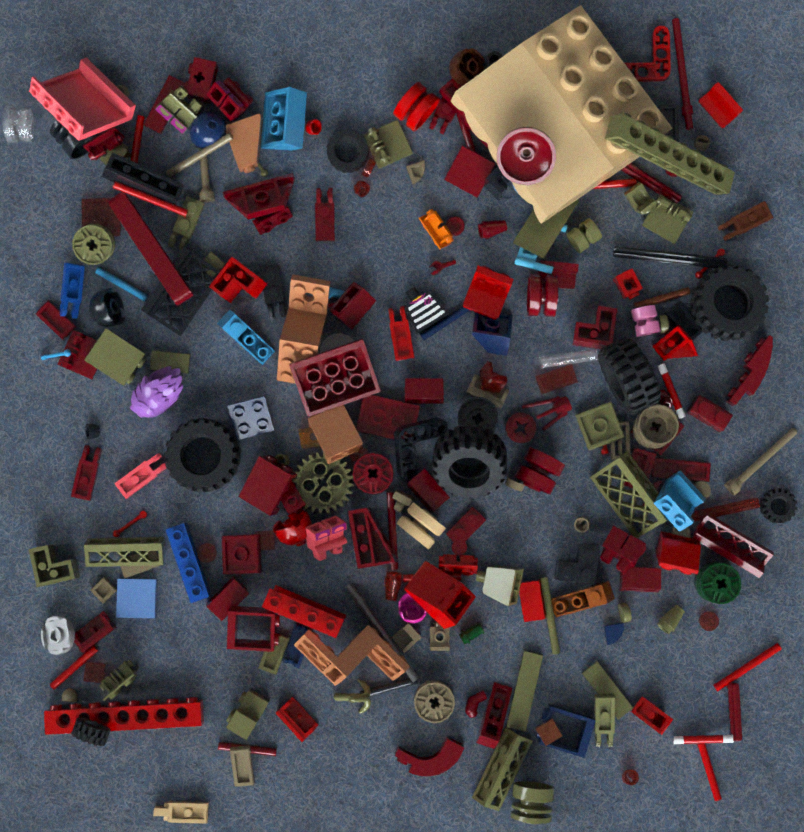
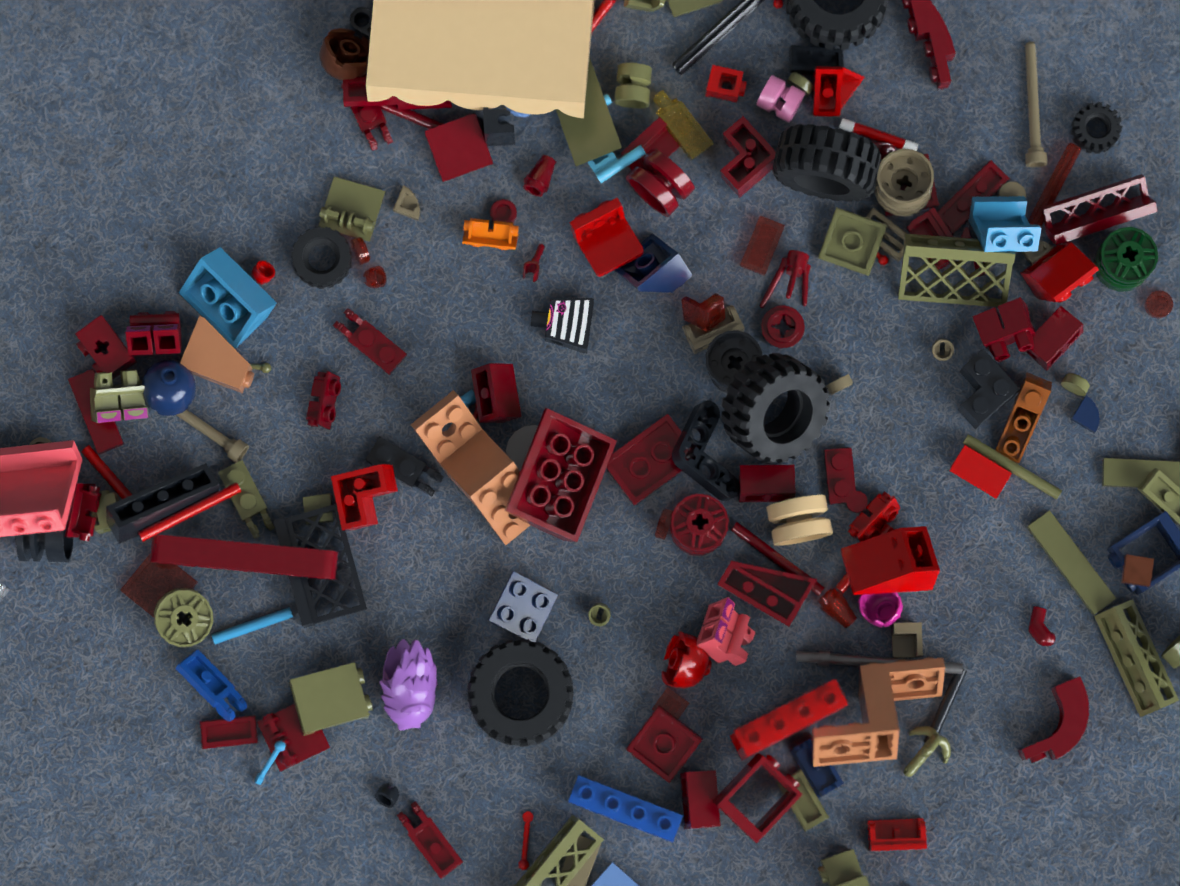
camera: 50 degrees left, 5 degrees down
(104, 305) = (265, 664): black cylinder -> none
(139, 477) = (483, 784): coral hinge -> none
(175, 360) = (376, 650): olive tile -> none
(199, 155) = (186, 420): dark tan bar -> none
(207, 552) = (630, 781): clear red tile -> none
(245, 337) = (428, 538): dark azure slope -> none
(261, 197) = (291, 392): dark red wing -> none
(267, 484) = (613, 648): dark red panel -> none
(292, 499) = (644, 635): dark red hinge -> none
(305, 440) = (595, 565): clear orange brick -> none
(335, 433) = (620, 527): nougat panel -> none
(338, 493) = (637, 595): olive gear -> none
(401, 336) = (573, 370): red hinge -> none
(402, 500) = (753, 518): dark tan tile -> none
(416, 106) = (339, 143): red wheel -> none
(424, 390) = (654, 395): dark red hinge -> none
(439, 645) = (937, 614): dark tan brick -> none
(443, 323) = (598, 313): dark blue bar -> none
(444, 695) = (995, 683): dark tan wheel -> none
(471, 633) = (961, 567): dark green pin -> none
(494, 716) = (1072, 617): dark red slope -> none
(501, 583) = (934, 487): torso -> none
(526, 168) = (517, 76): dark red dish -> none
(537, 475) = (850, 352): dark red wheel -> none
(568, 358) = (745, 223): clear pin -> none
(585, 280) = (682, 125): none -> clear yellow hinge
(662, 298) = (770, 61): copper bar -> none
(670, 620) = (1124, 343): olive cone -> none
(709, 413) = (937, 116): dark red brick -> none

